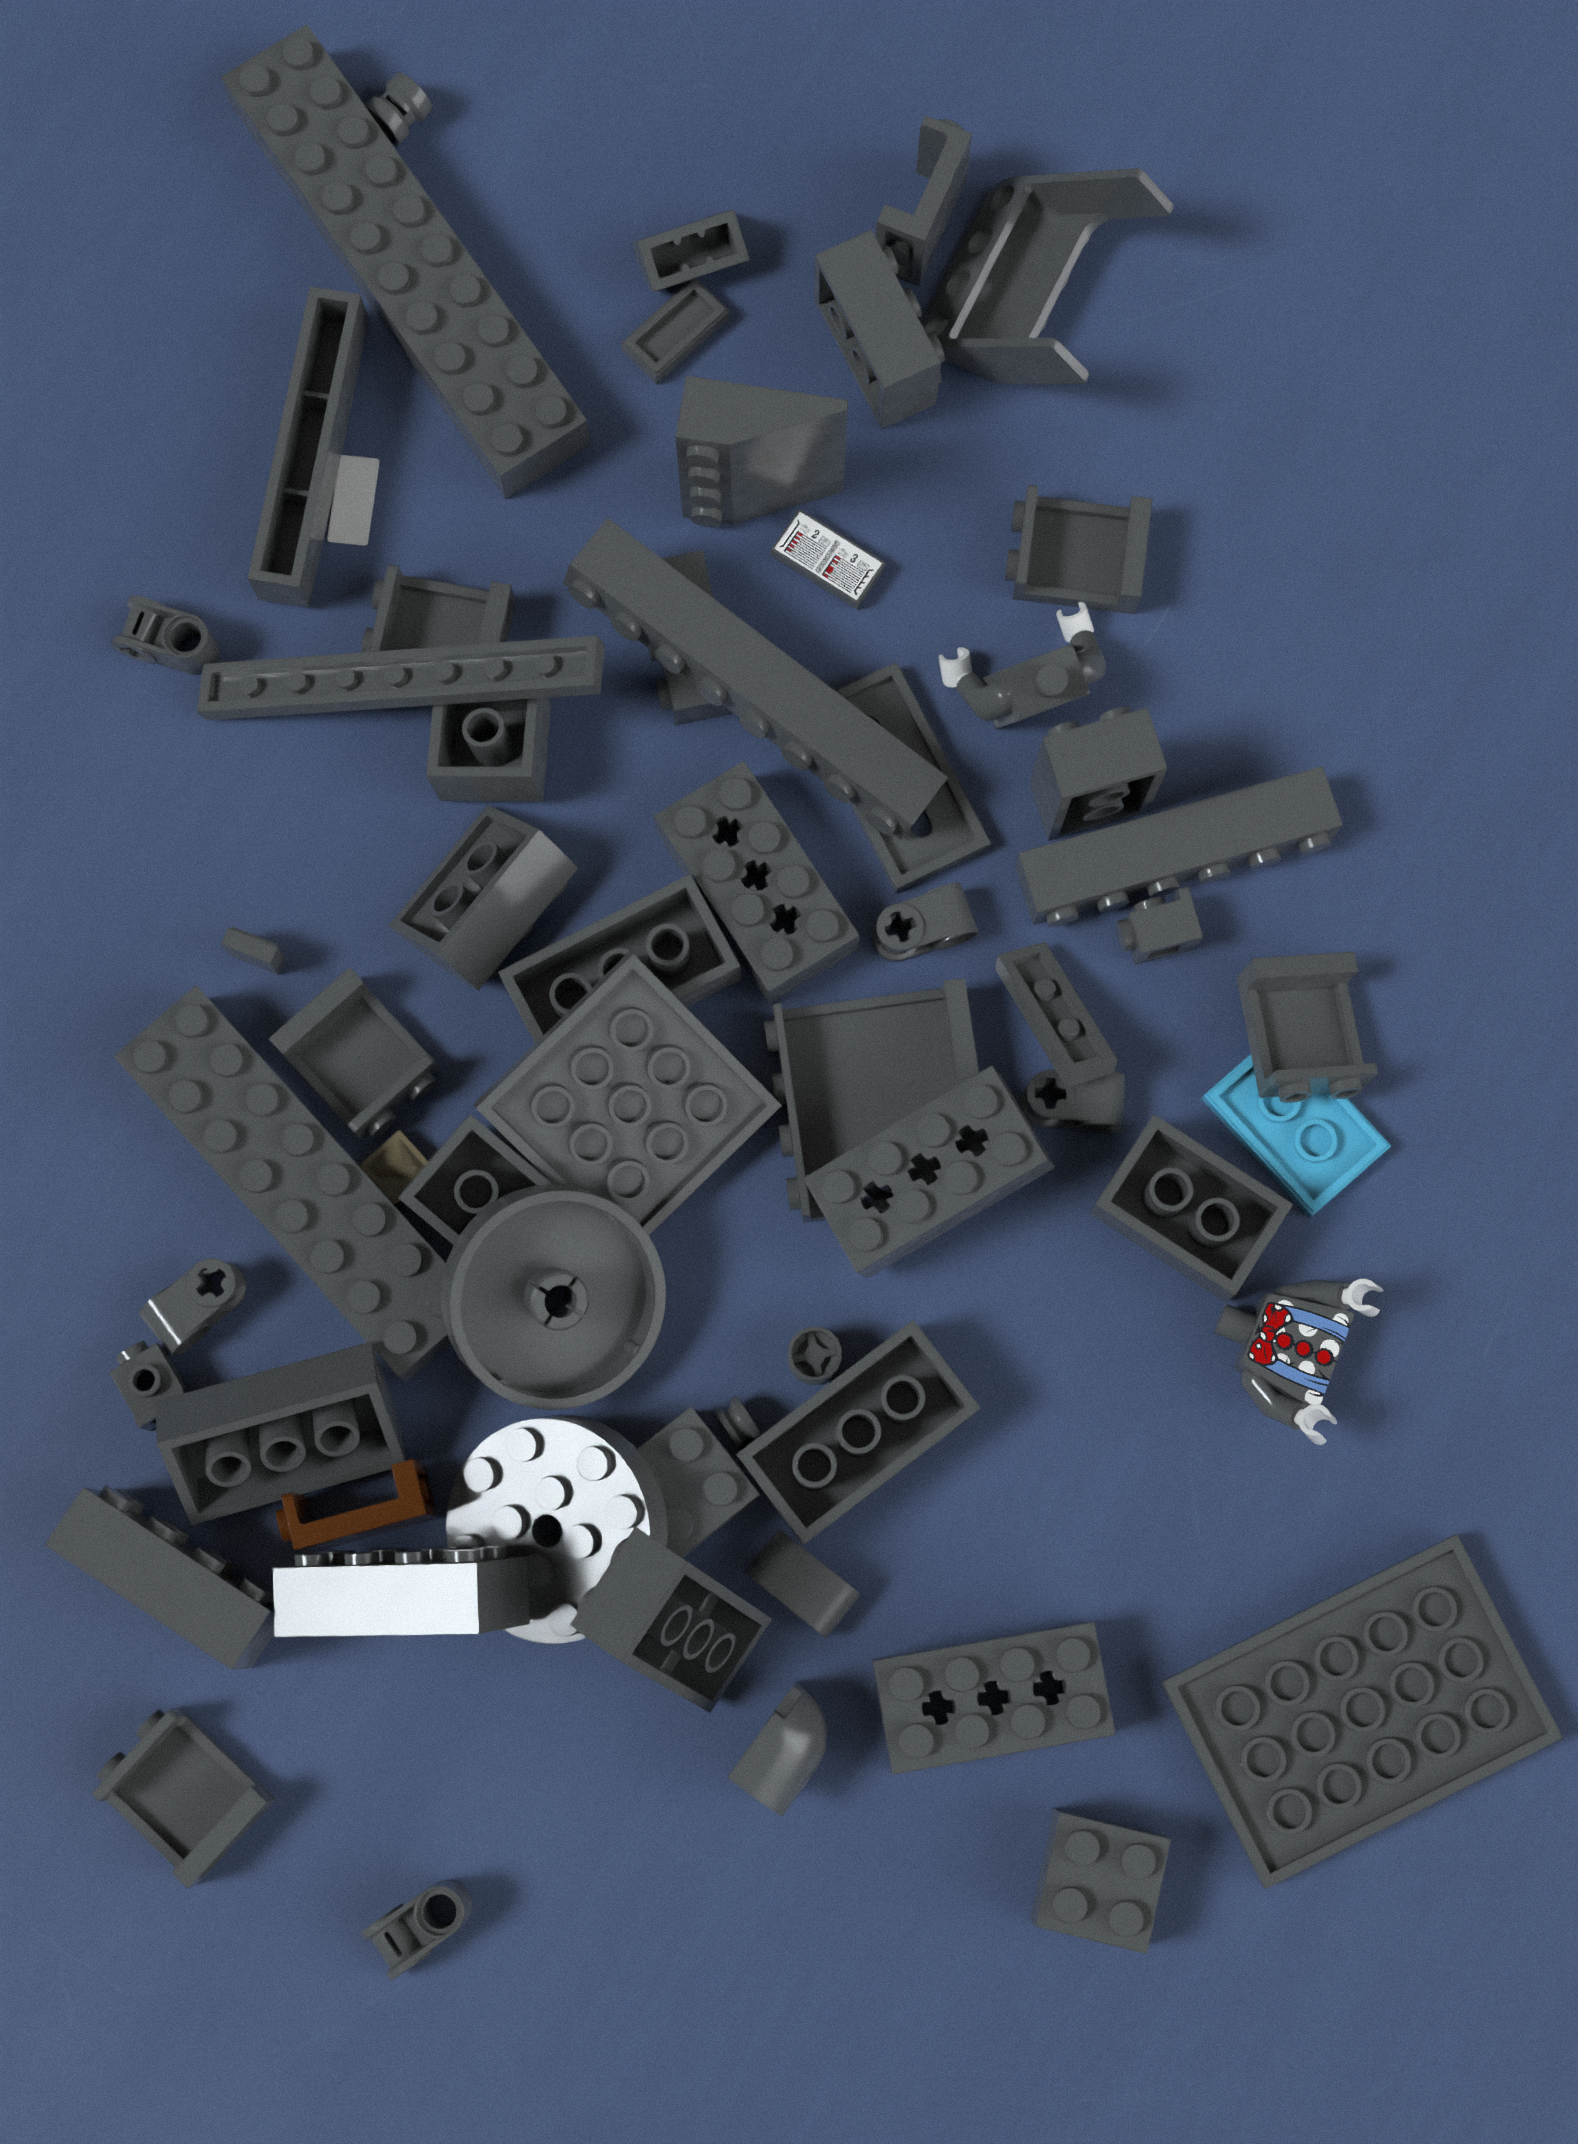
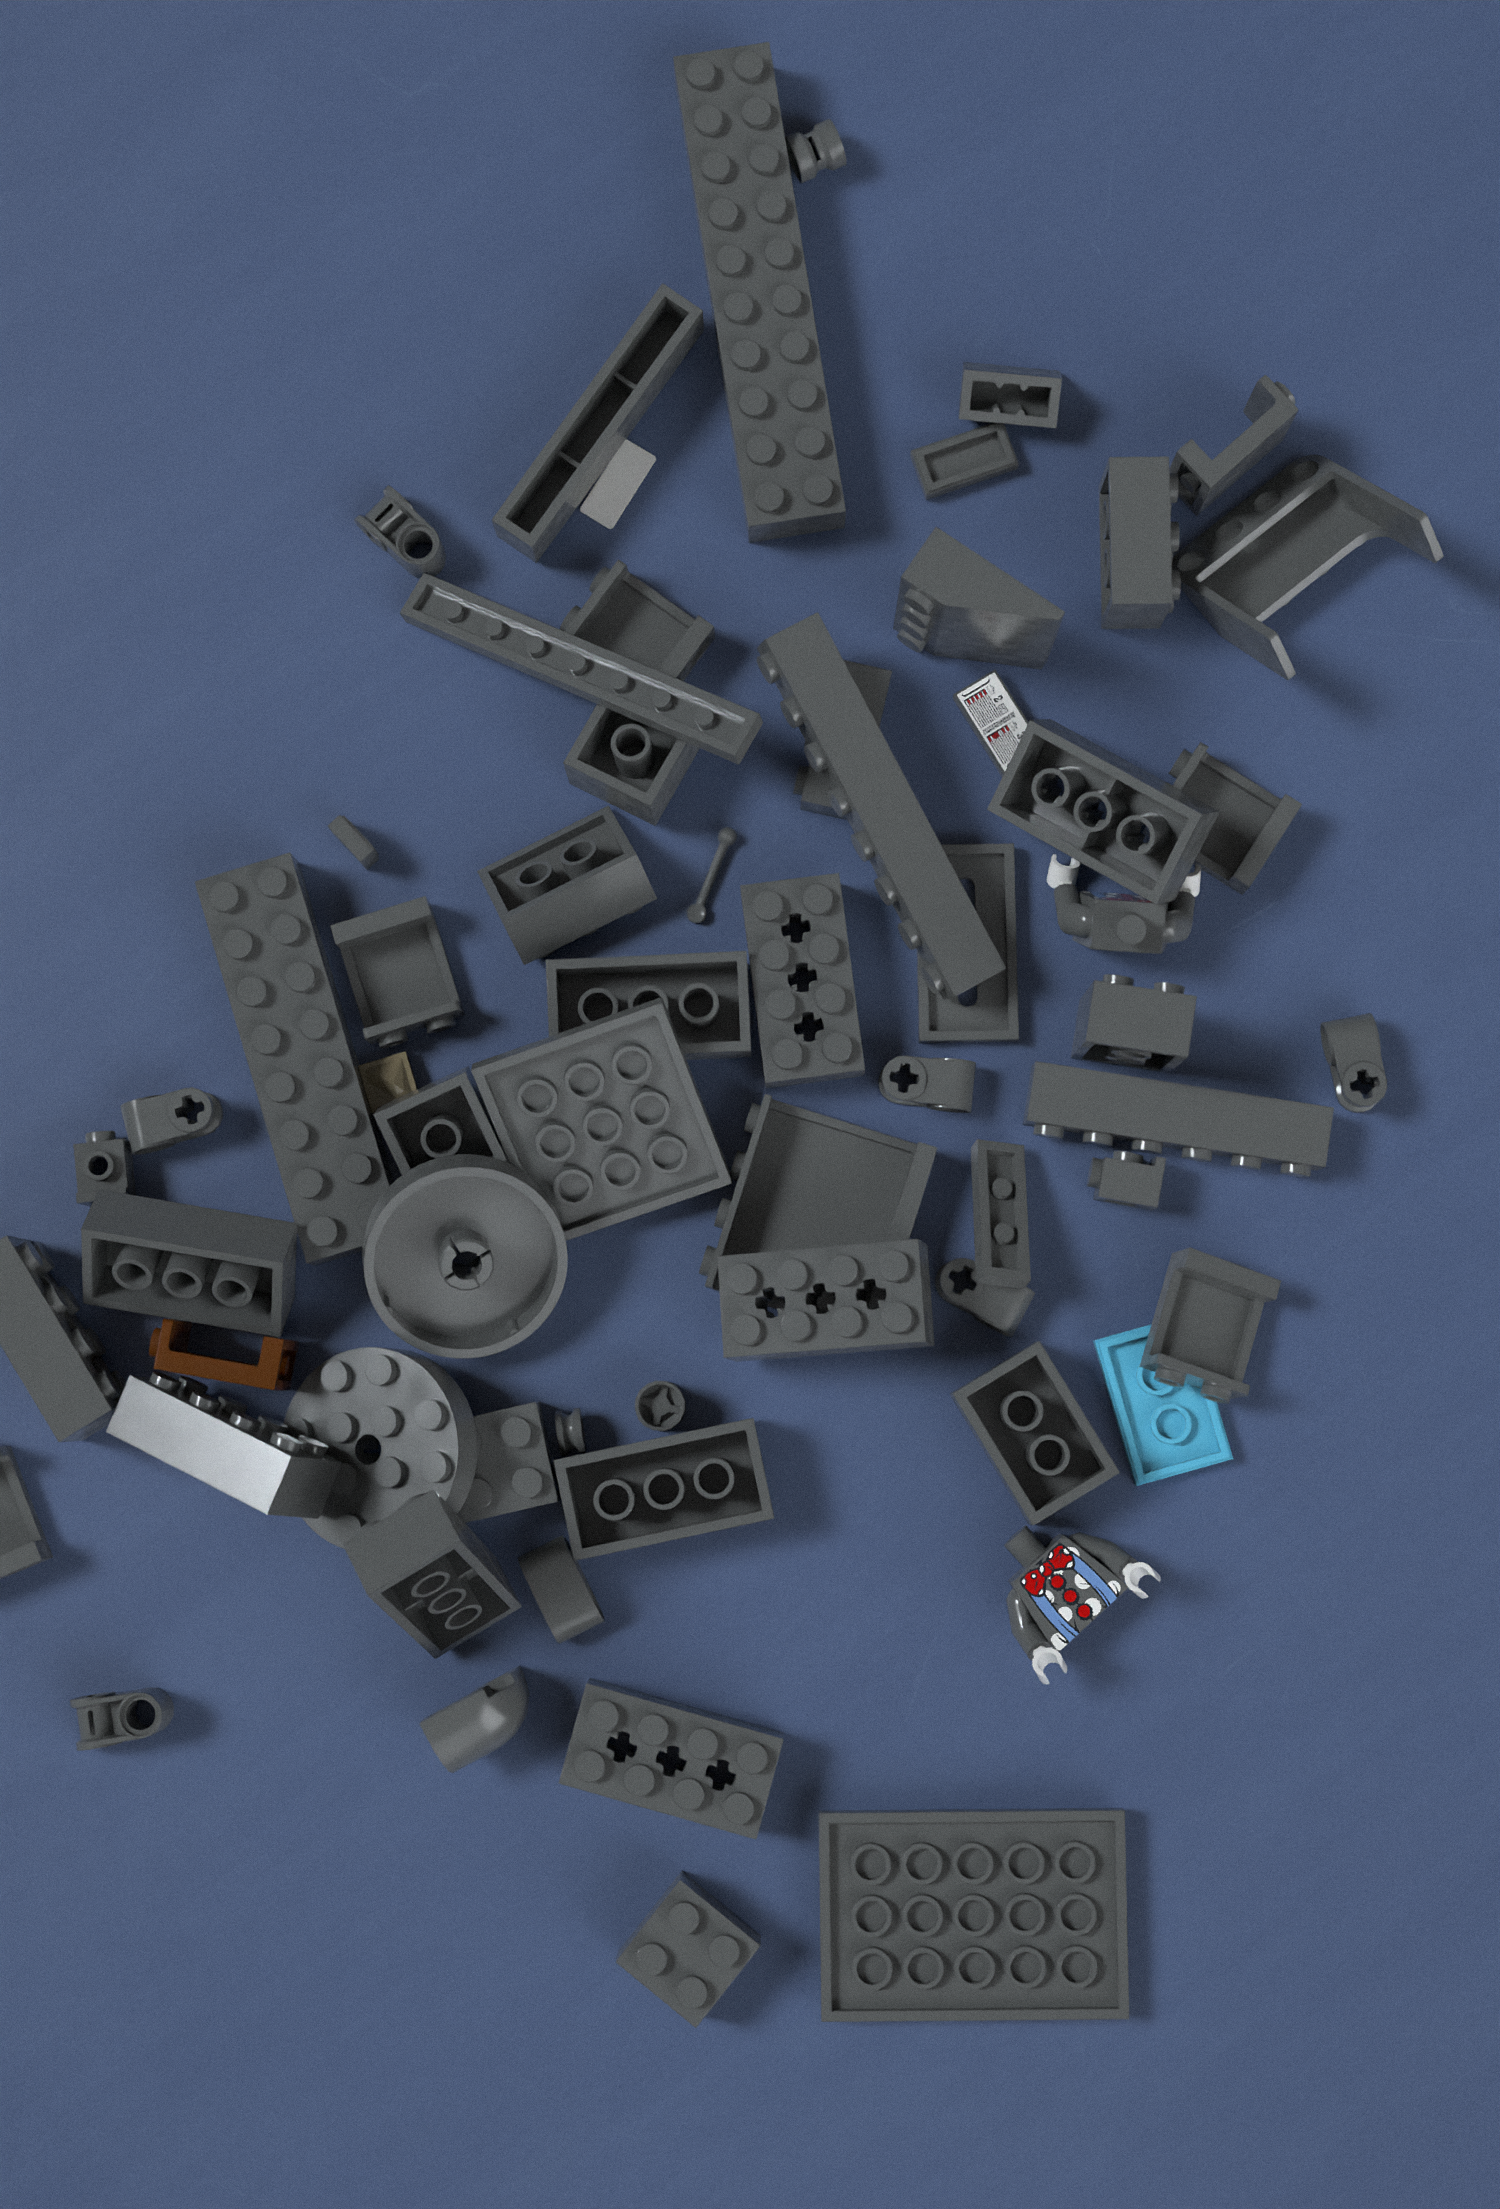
camera: 30 degrees right, 5 degrees up
(621, 867) = (696, 912): none -> dark grey hinge
(944, 611) = (1074, 824): none -> dark grey brick
(1314, 710) = (1353, 1052): none -> dark grey piece

